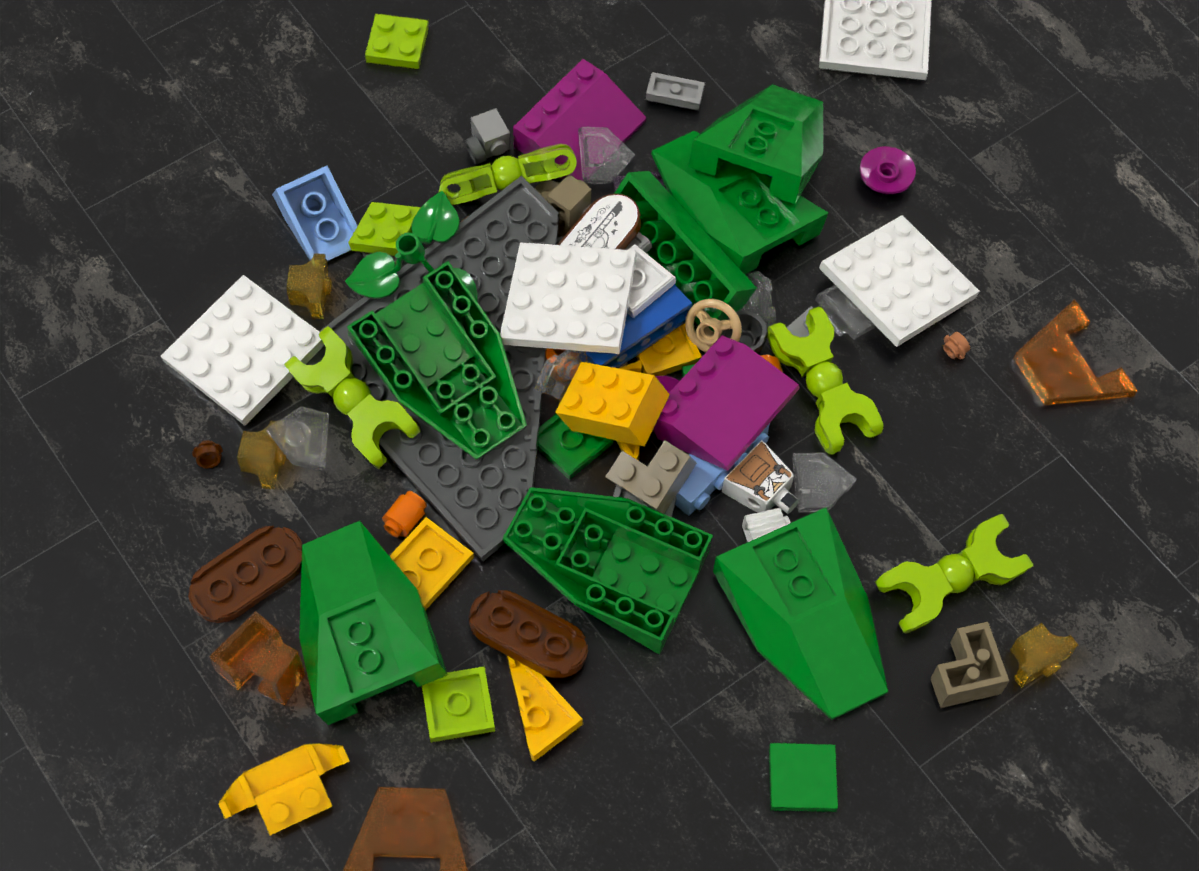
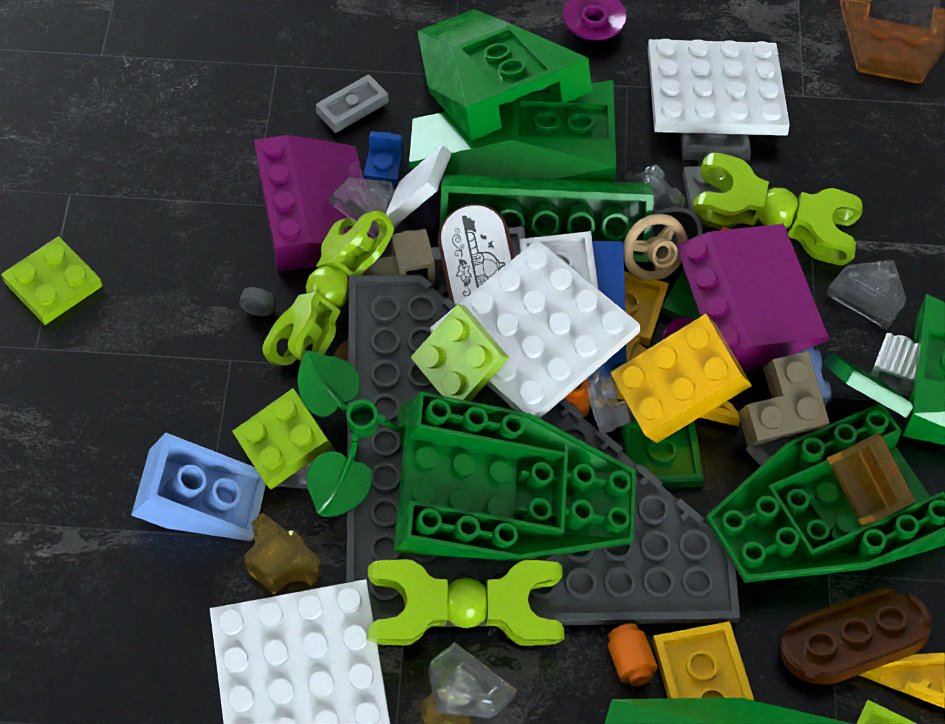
camera: 50 degrees left, 5 degrees down
(491, 132) = (251, 270): light grey brick -> none
(508, 270) = (459, 355): none -> lime plate
(633, 166) = (418, 185): none -> white tile
(640, 562) = (871, 479): none -> clear orange panel
(648, 138) = (384, 157): none -> blue bracket
(719, 518) = (868, 384): none -> tile
(761, 481) = (849, 328): torso -> none
(956, 346) = (817, 96): nougat plate -> none

